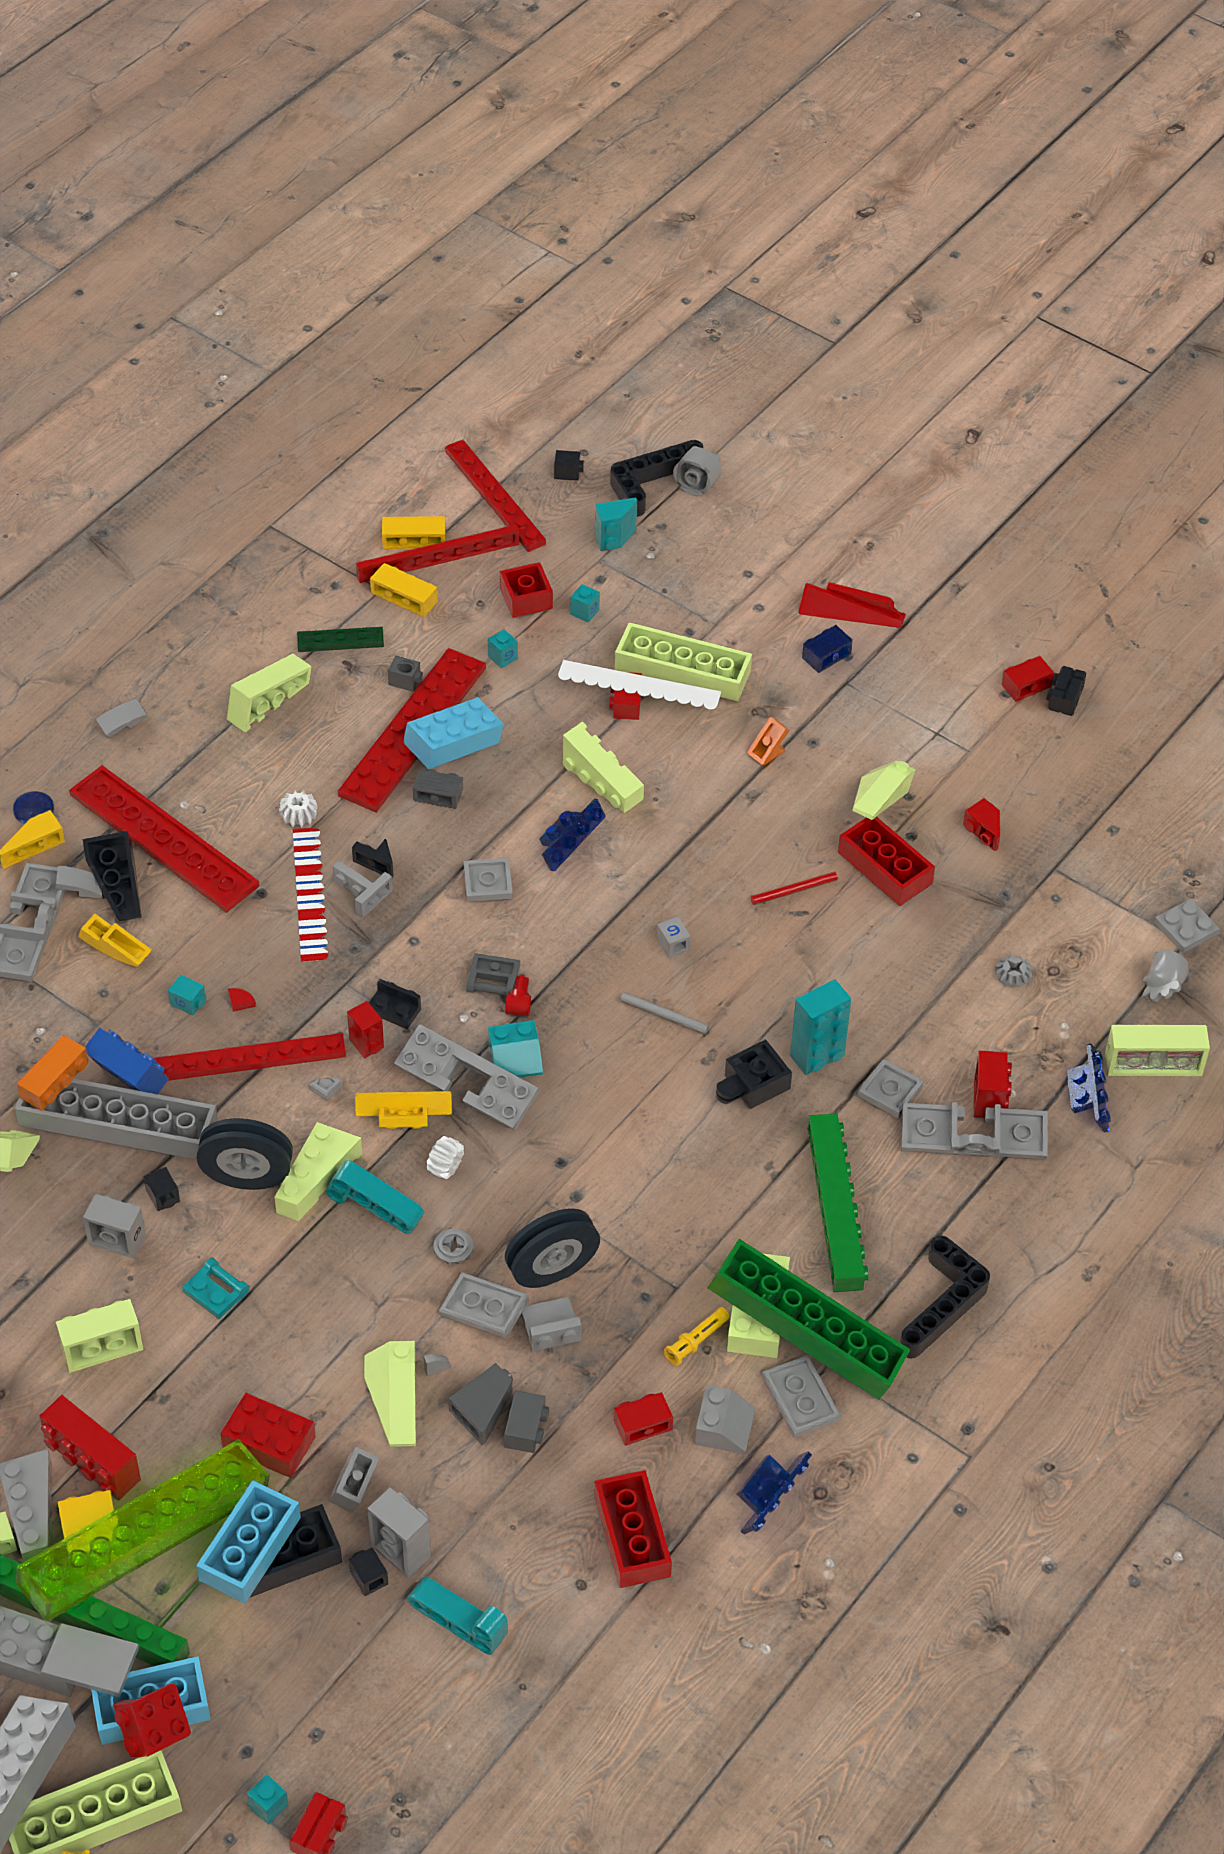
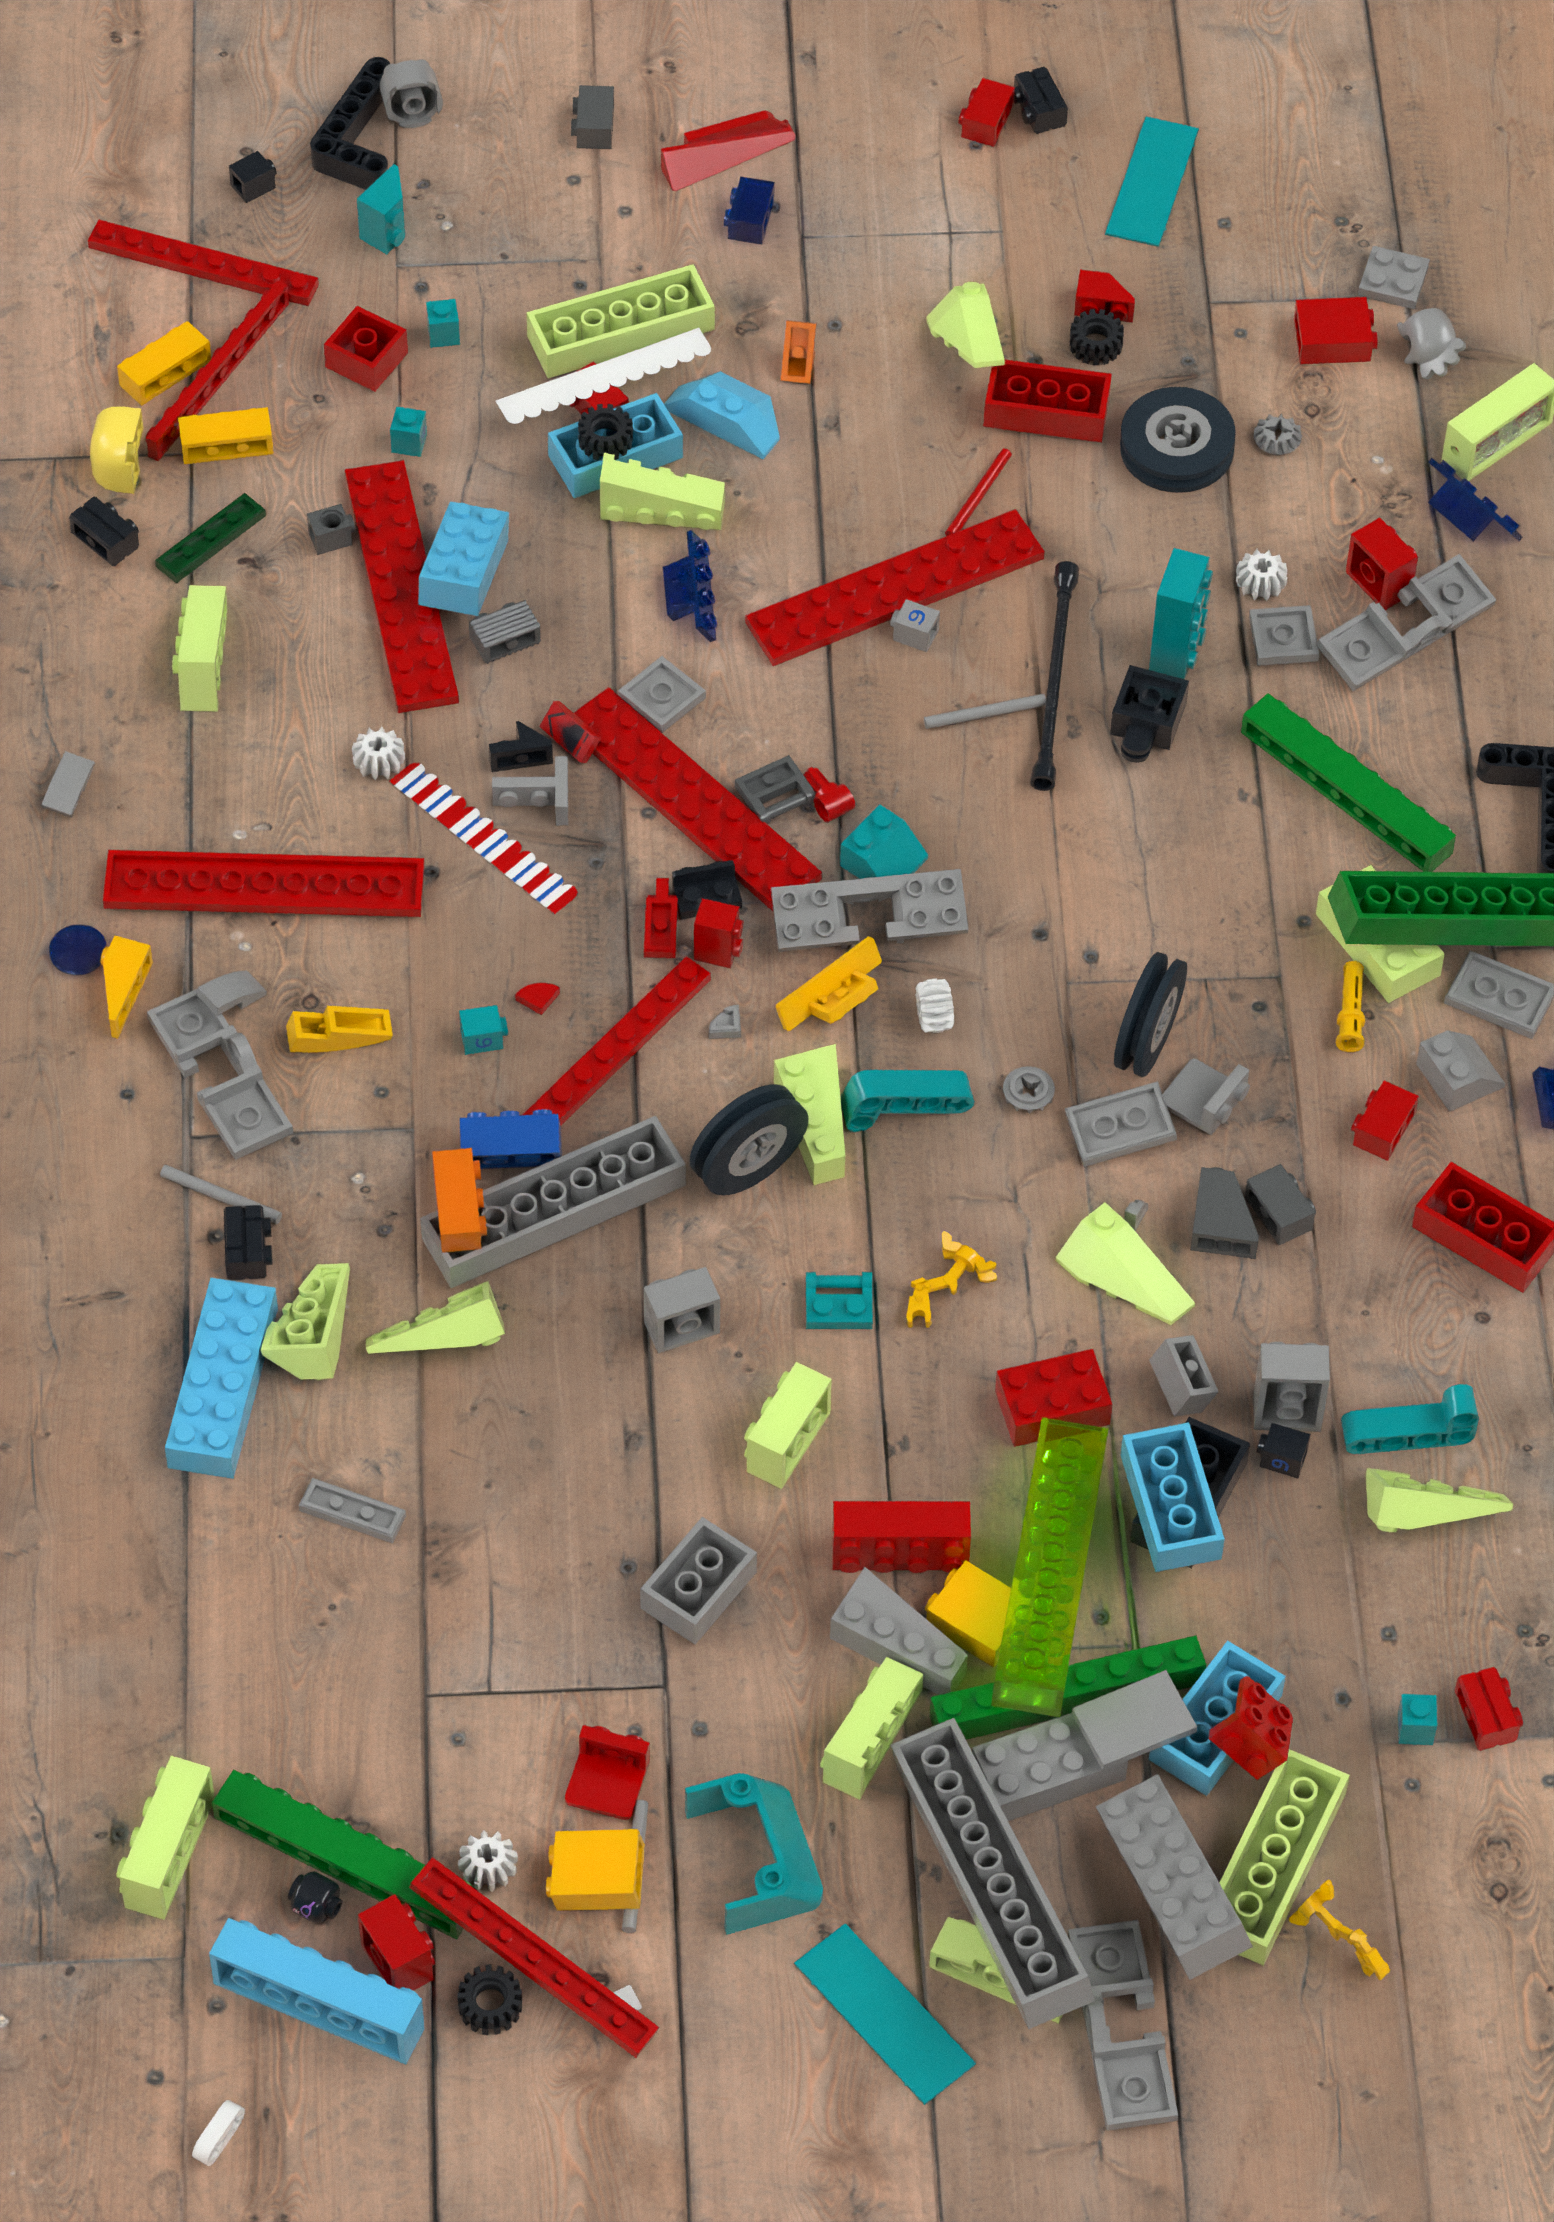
camera: 40 degrees left, 5 degrees up
(115, 870) = (255, 950): black wedge -> none
(161, 1189) = (680, 1242): black brick -> none
(258, 1323) = (965, 1259): none -> yellow piece
(286, 599) = (104, 530): none -> black brick
(332, 559) = (116, 447): none -> light yellow brick
(336, 1012) = (661, 922): none -> red hinge
(407, 1660) = (1407, 1504): none -> yellowish green wedge
(413, 866) = (570, 732): none -> red tile
(443, 947) = (693, 799): none -> red plate
(597, 702) = (605, 419): none -> black tyre
(619, 726) = (654, 444): none -> medium azure brick
(660, 1069) = (1044, 770): none -> black hose
(696, 908) = (877, 591): none -> red plate
(697, 751) = (728, 411): none -> medium azure wedge
(791, 545) = (594, 117): none -> dark grey brick
(913, 1044) = (1261, 574): none -> white gear
(961, 834) = (1096, 324): none -> black tyre
(965, 928) = (1173, 462): none -> black wheel
(1092, 778) = (1152, 181): none -> teal window
(1112, 931) = (1334, 330): none -> red brick

